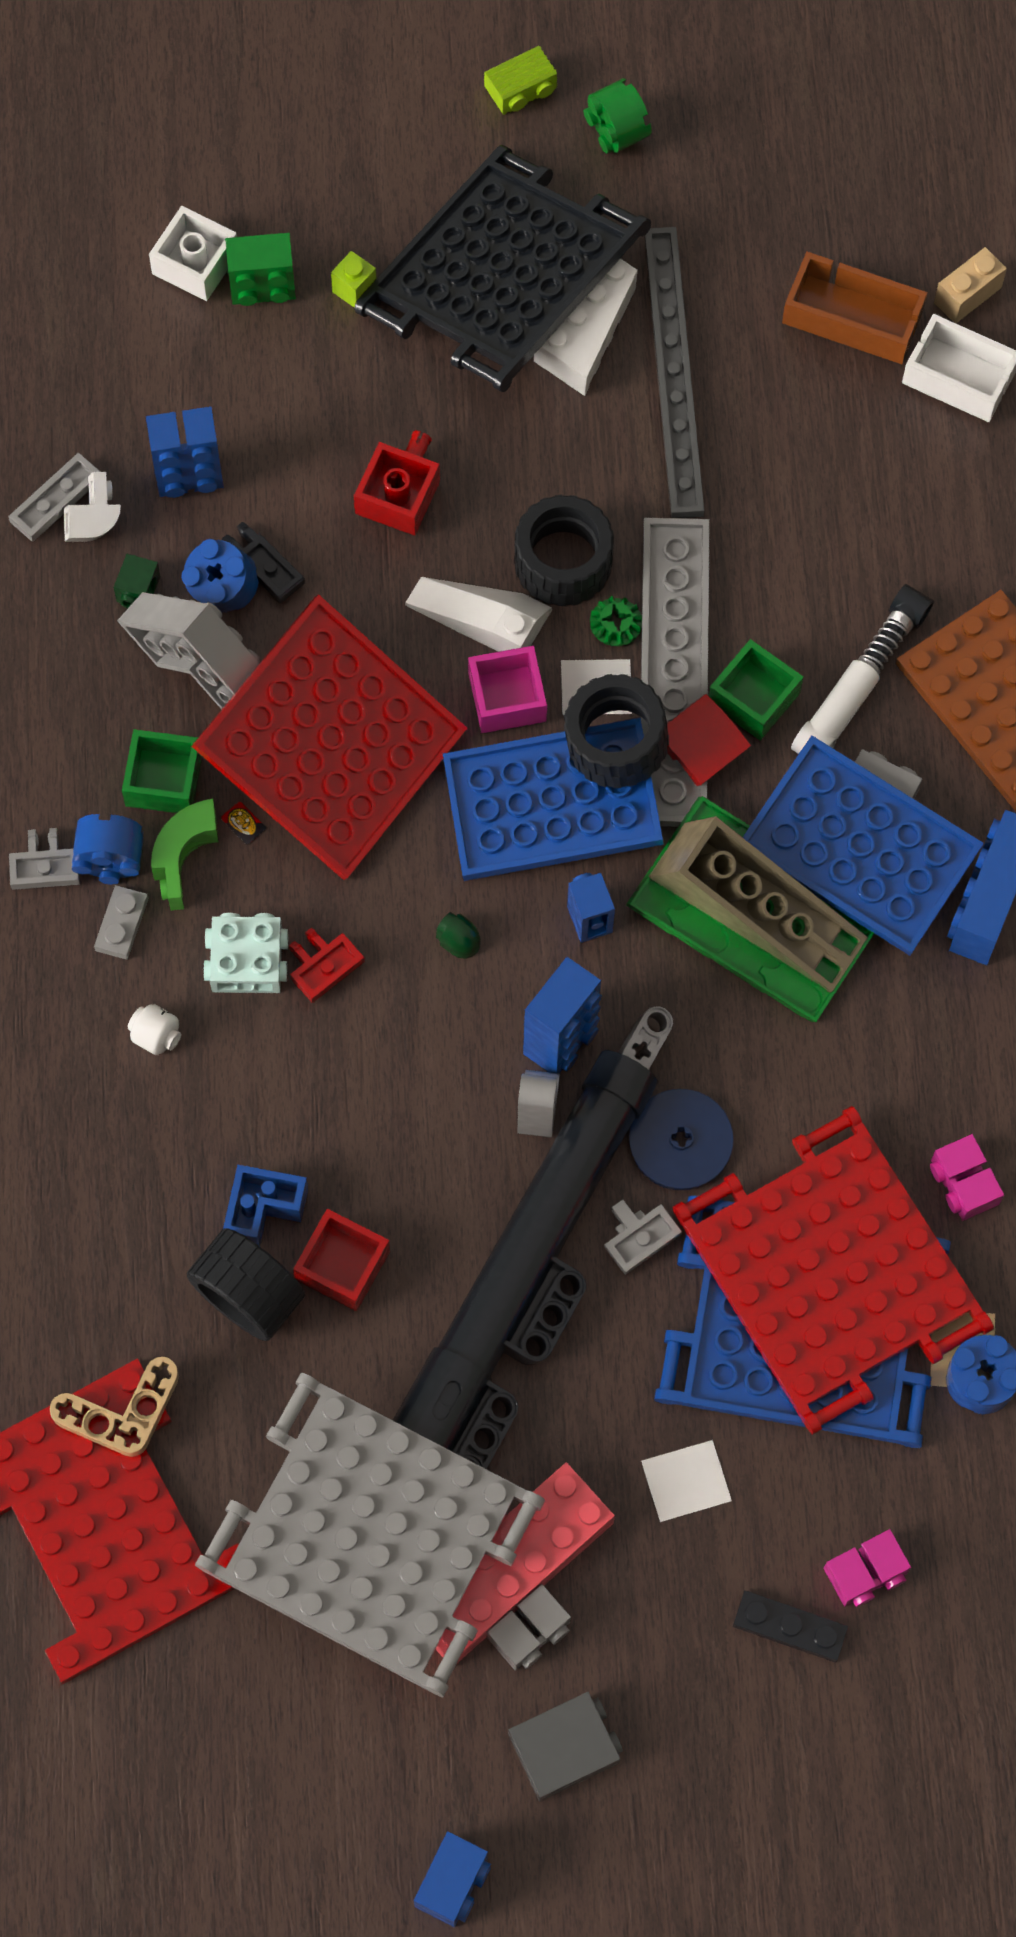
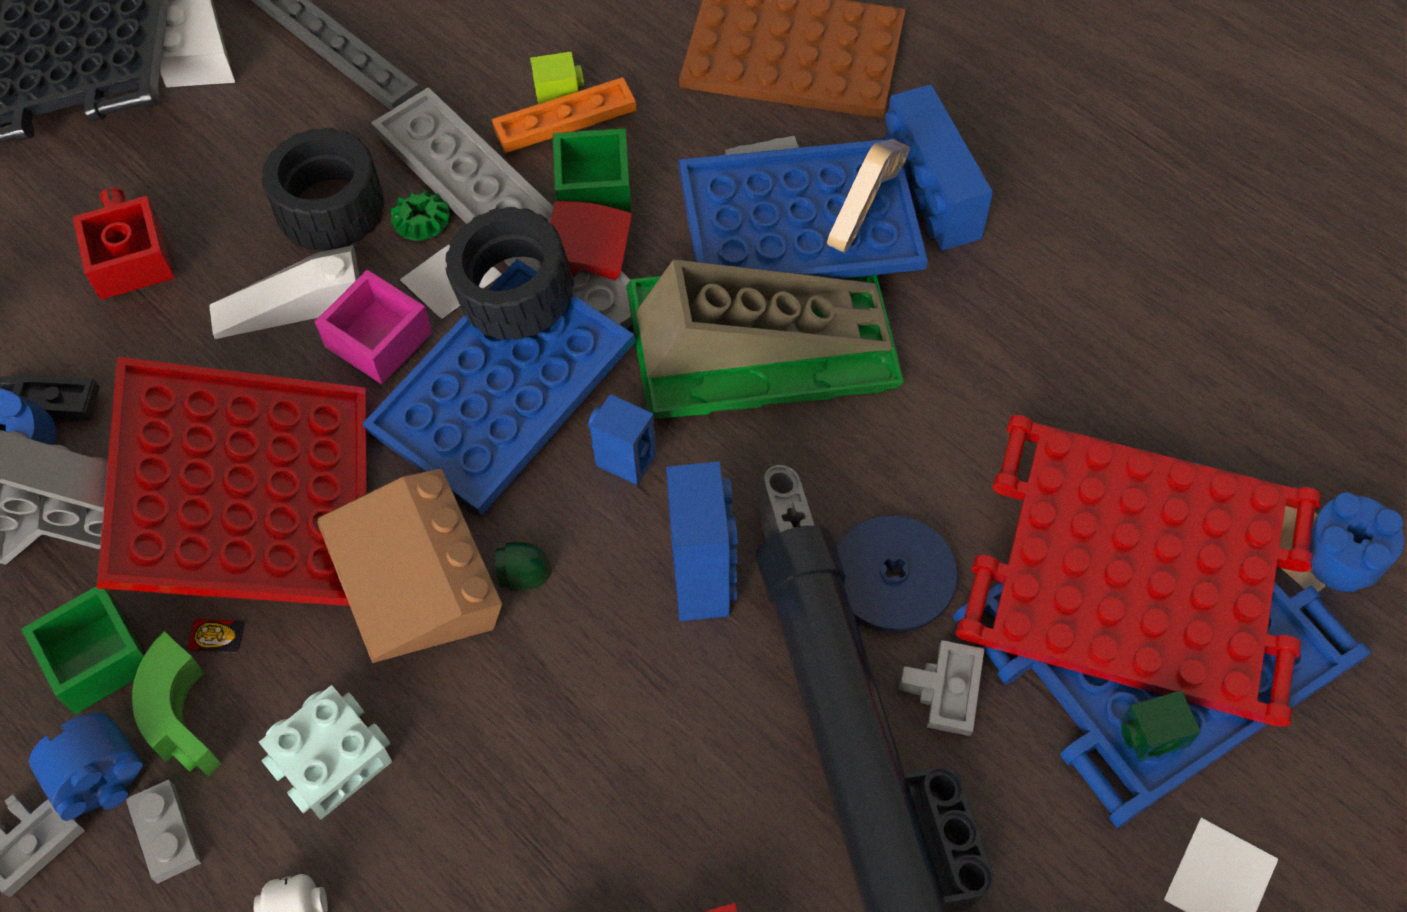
camera: 40 degrees left, 10 degrees down
(326, 967) = (418, 698): red hinge -> none
(388, 879) = (410, 567): none -> medium nougat slope
(537, 1103) = (749, 639): light grey beam -> none
(730, 1364) = (1159, 726): none -> dark green brick
(786, 621) = (564, 115): none -> orange plate
(806, 586) = (555, 76): none -> lime brick
(907, 611) = (664, 104): piece -> none
(914, 861) = (881, 164): none -> tan beam
(961, 1172) = (1174, 407): dark pink piece -> none

